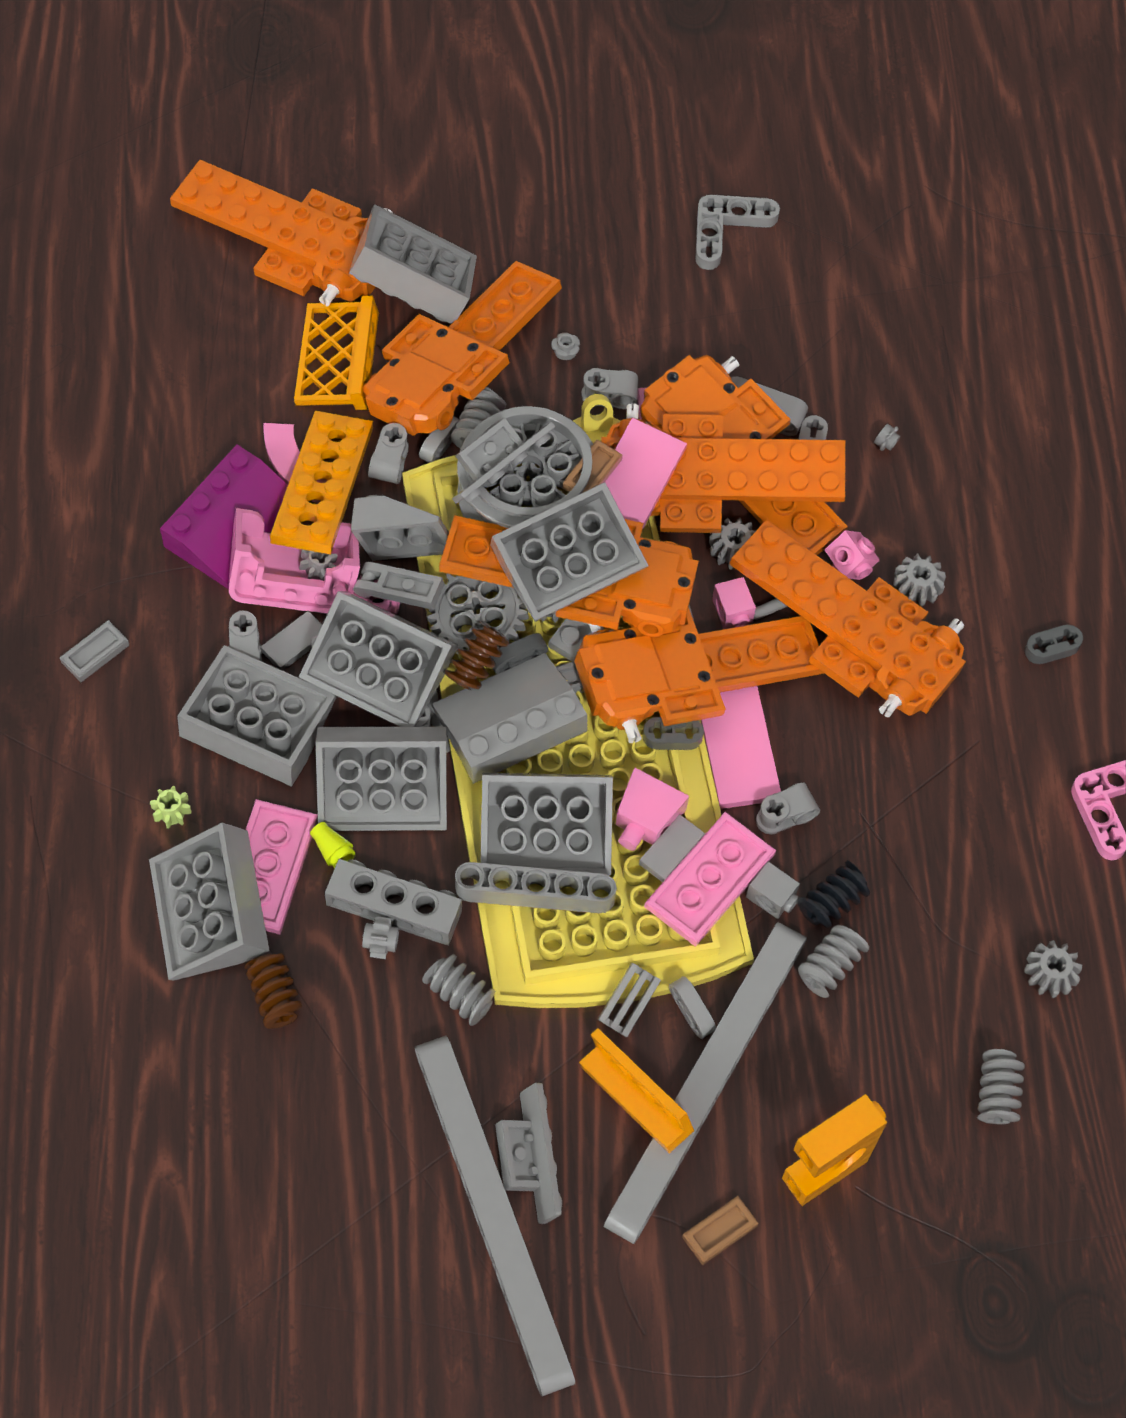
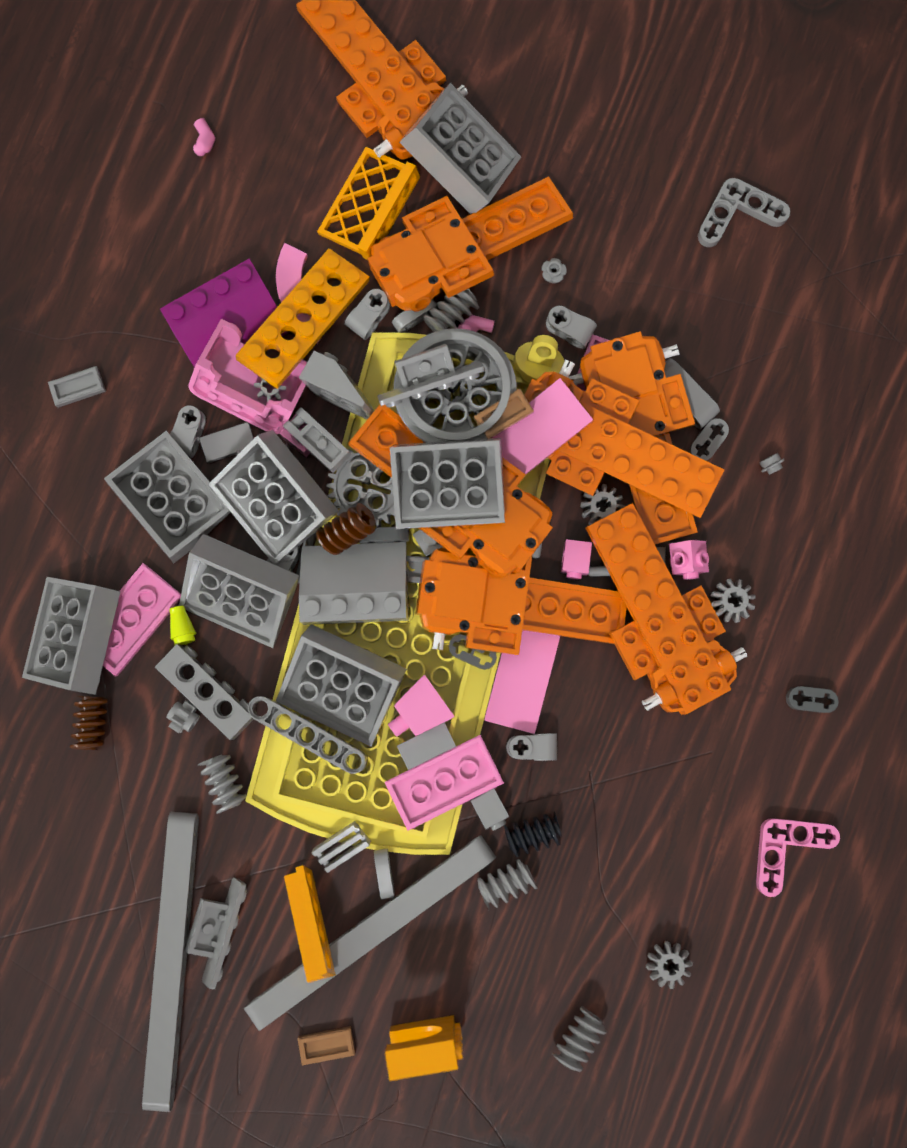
camera: 30 degrees right, 20 degrees up
(128, 356) = (206, 138): none -> bright pink arm
(163, 805) = (72, 549): yellowish green gear -> none

